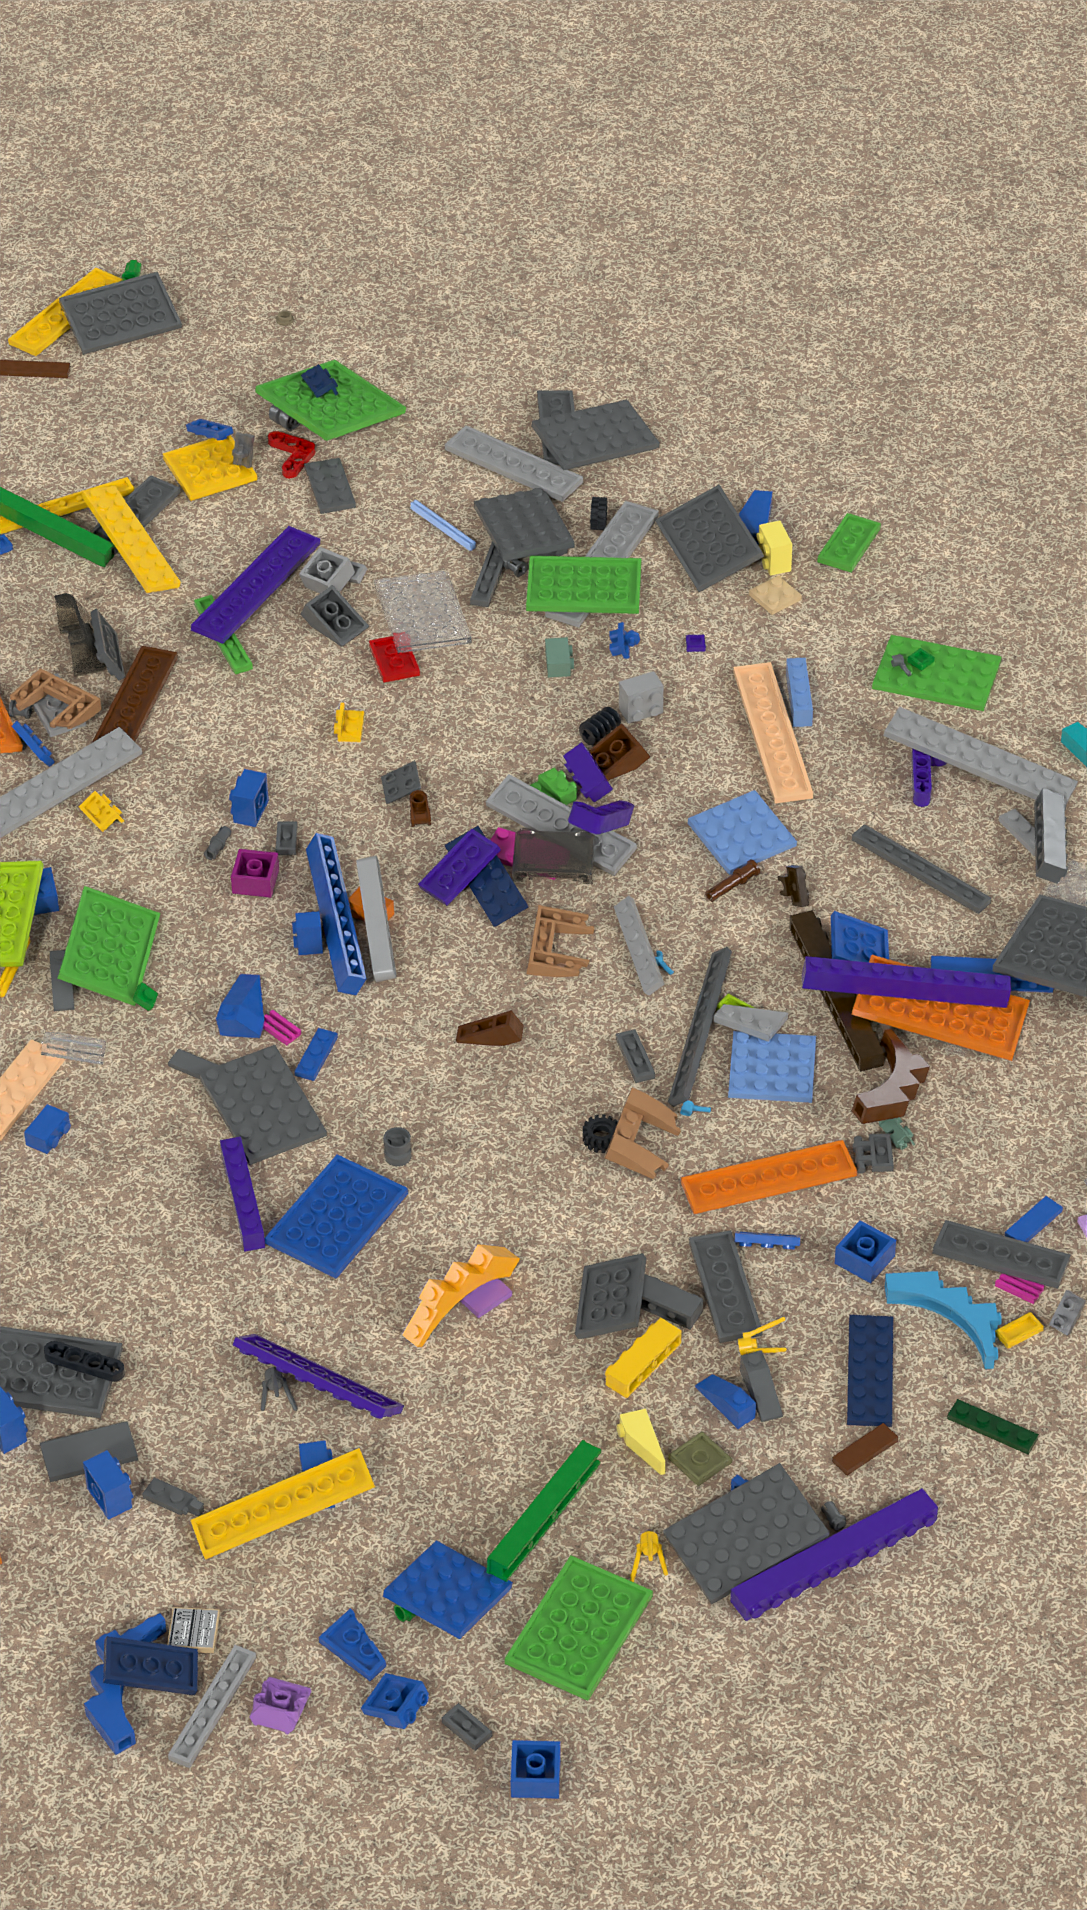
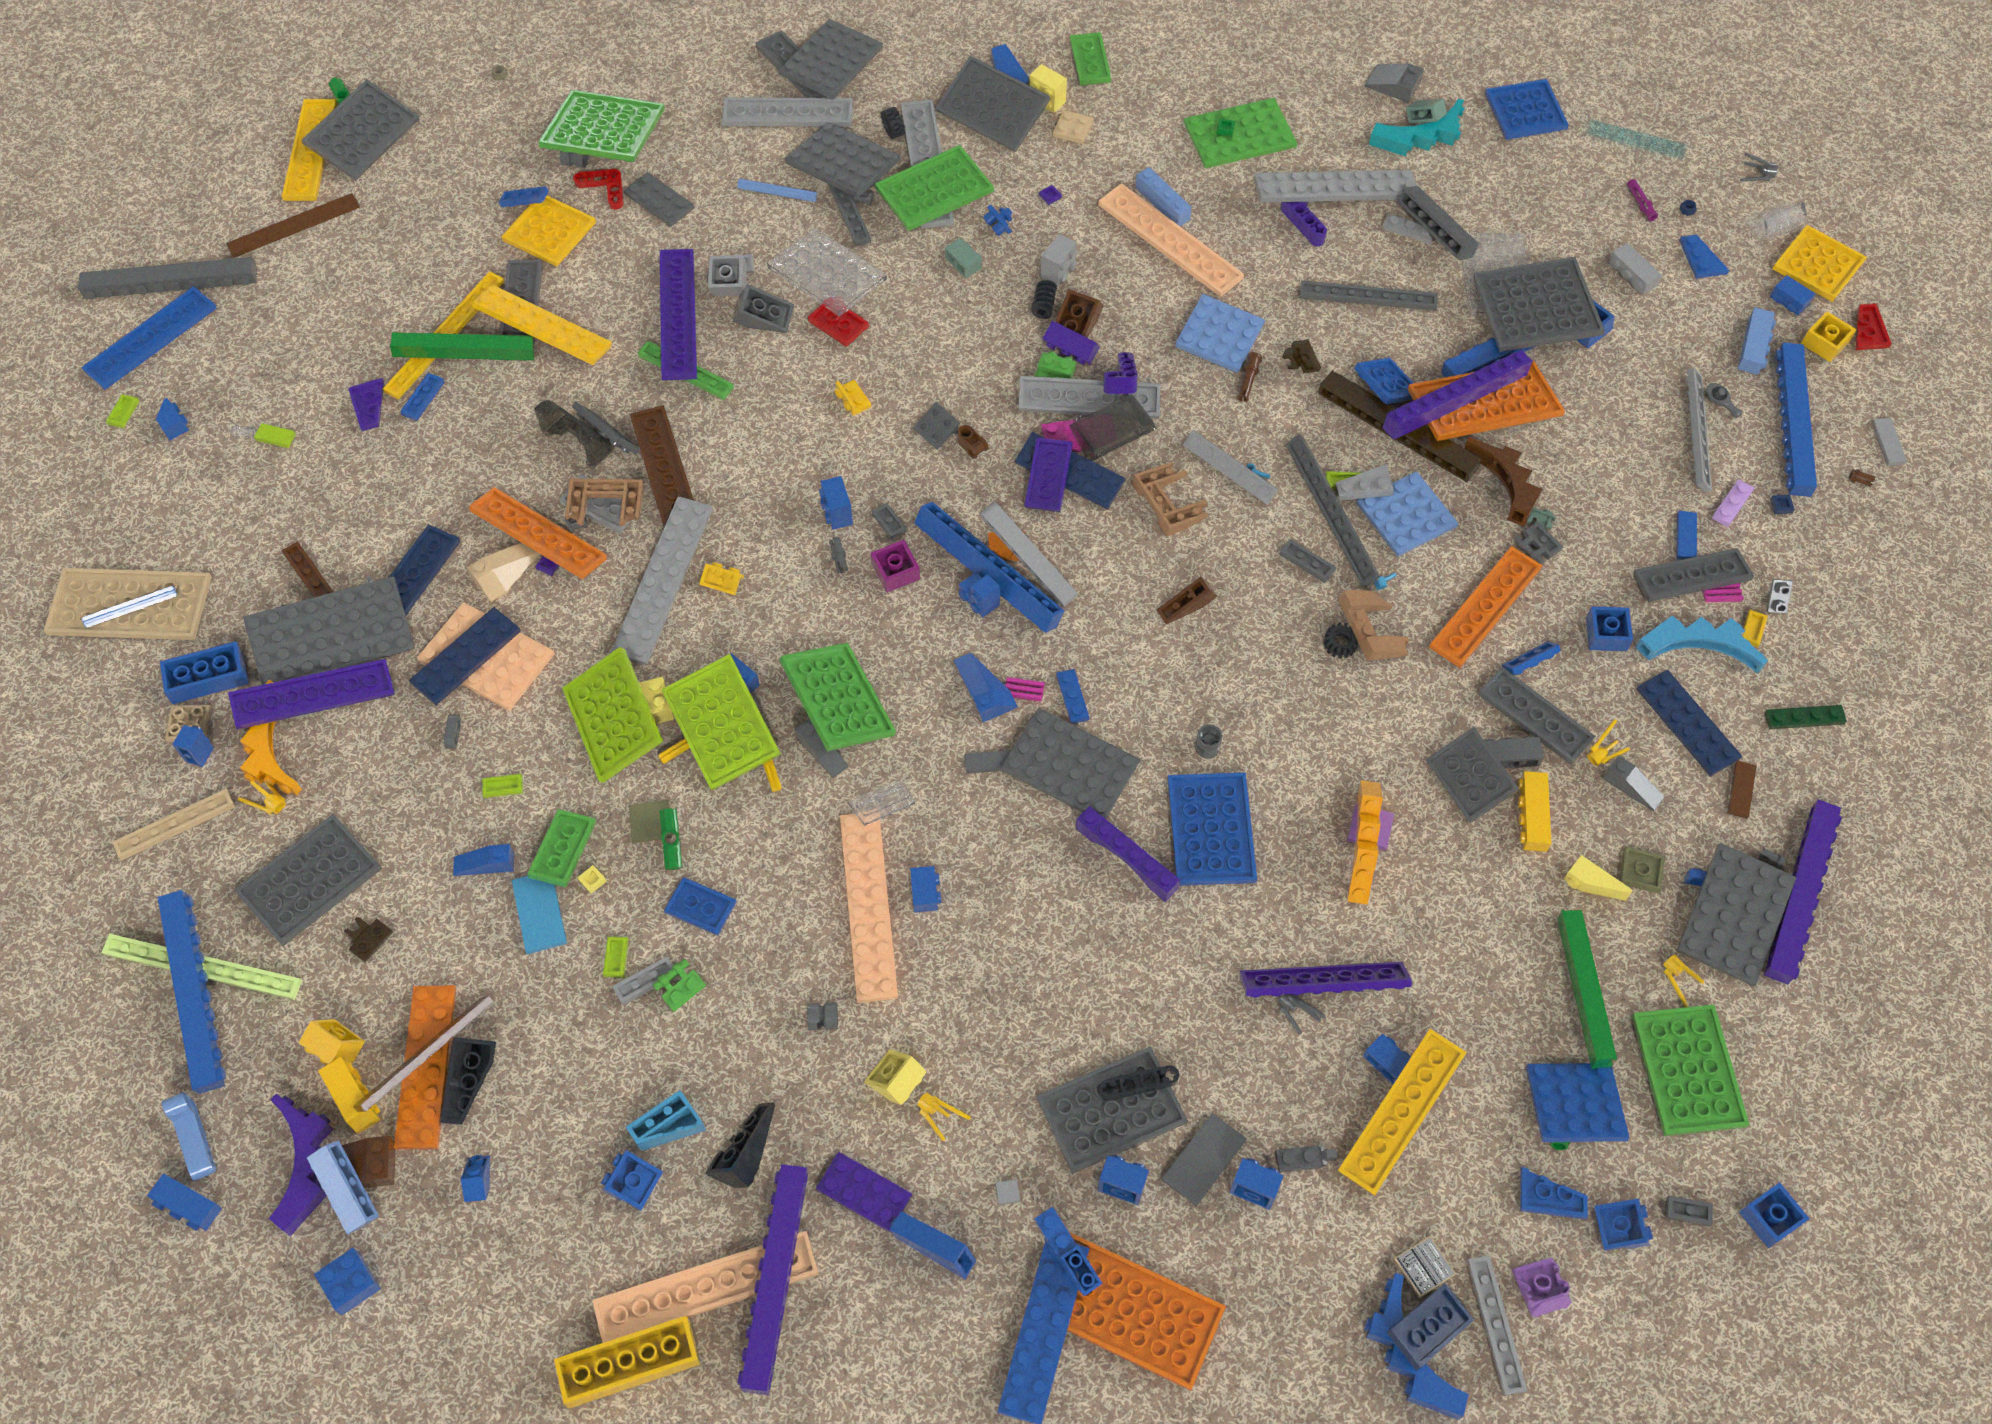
camera: 35 degrees left, 15 degrees up
(34, 743) = (614, 546): blue plate -> none
(145, 996) = (899, 723): green plate -> none
(243, 449) = (573, 201): flat silver hips -> none
(319, 381) = (584, 113): dark blue bracket -> none
(728, 1399) = (1621, 808): blue slope -> none
(898, 660) = (1213, 135): dark grey hand -> none

